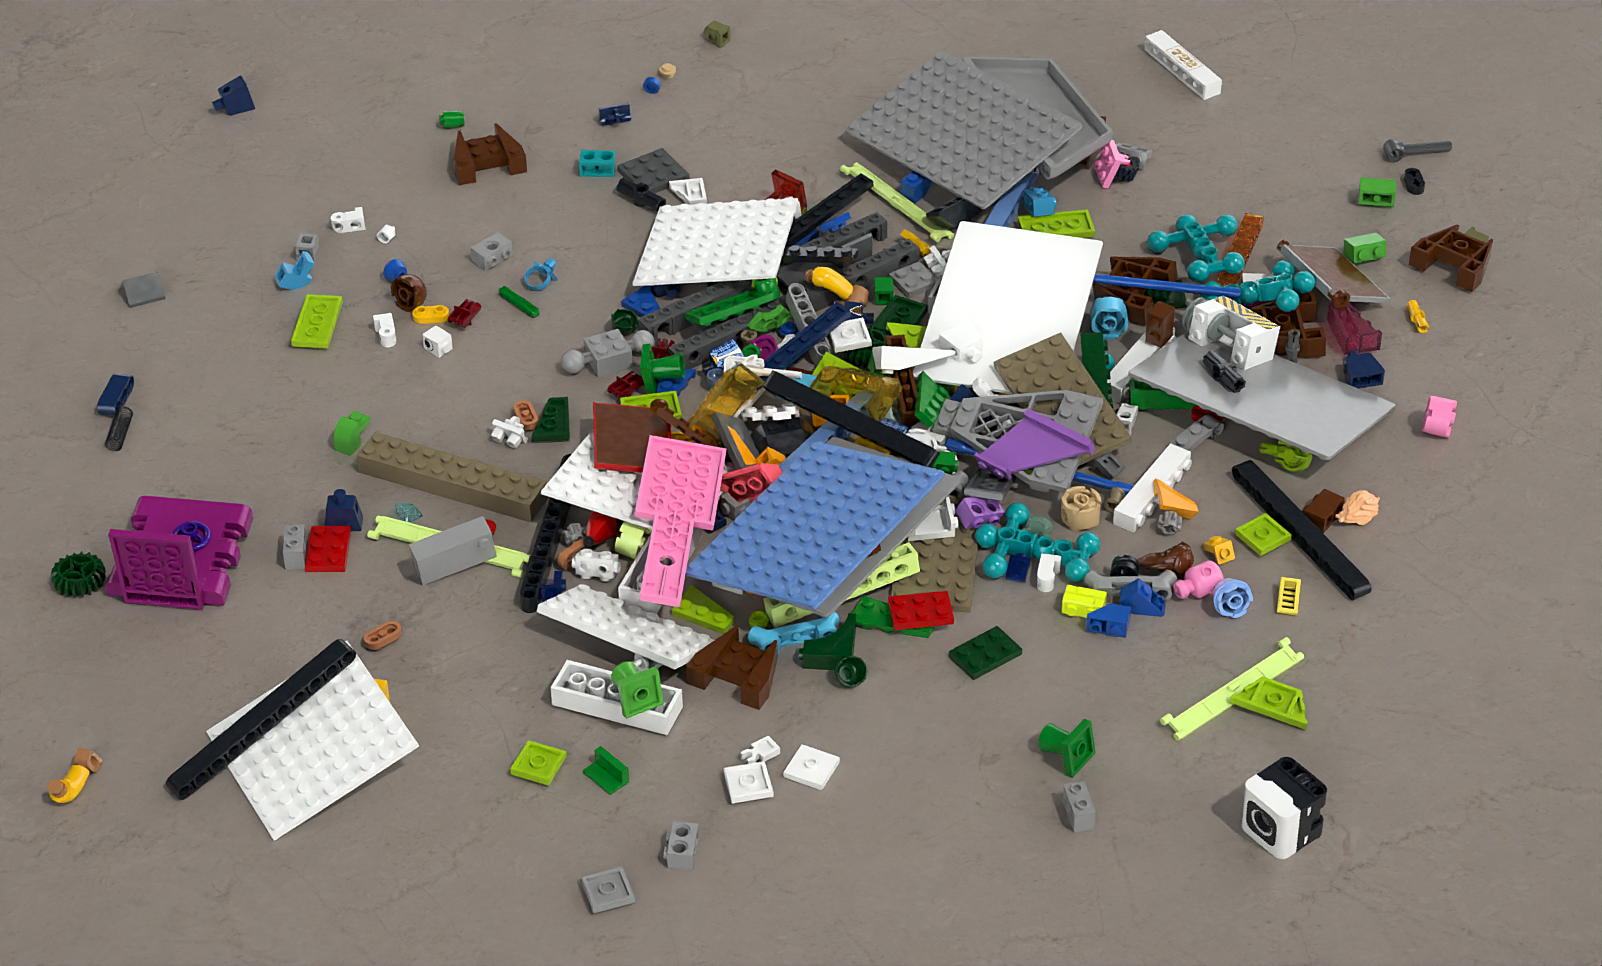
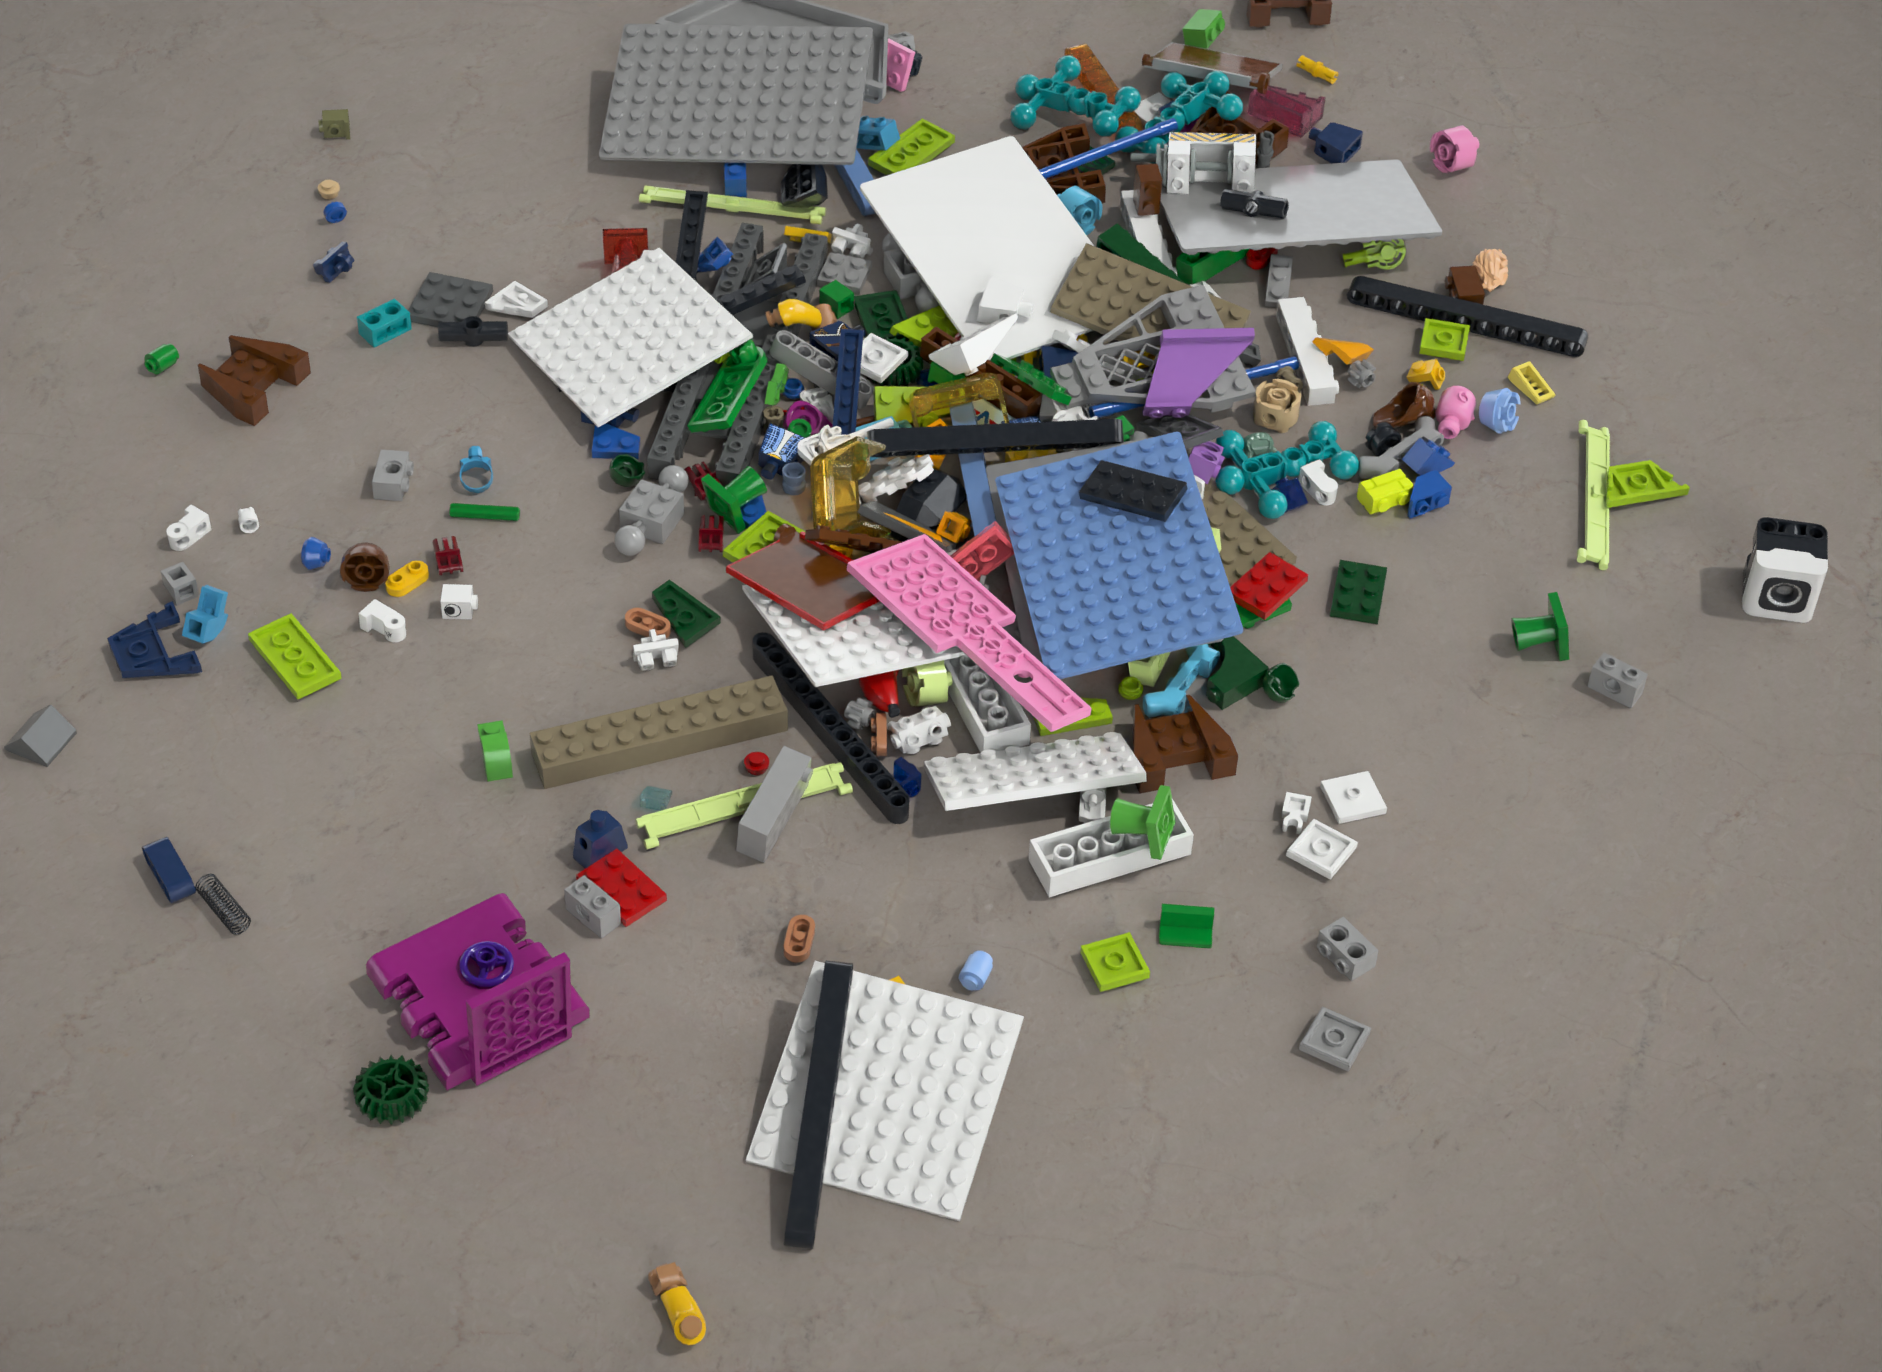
camera: 45 degrees left, 5 degrees up
(245, 271) = (142, 653): none -> dark blue wing
(453, 715) = (976, 970): none -> light blue brick
(866, 489) = (1133, 490): none -> black plate

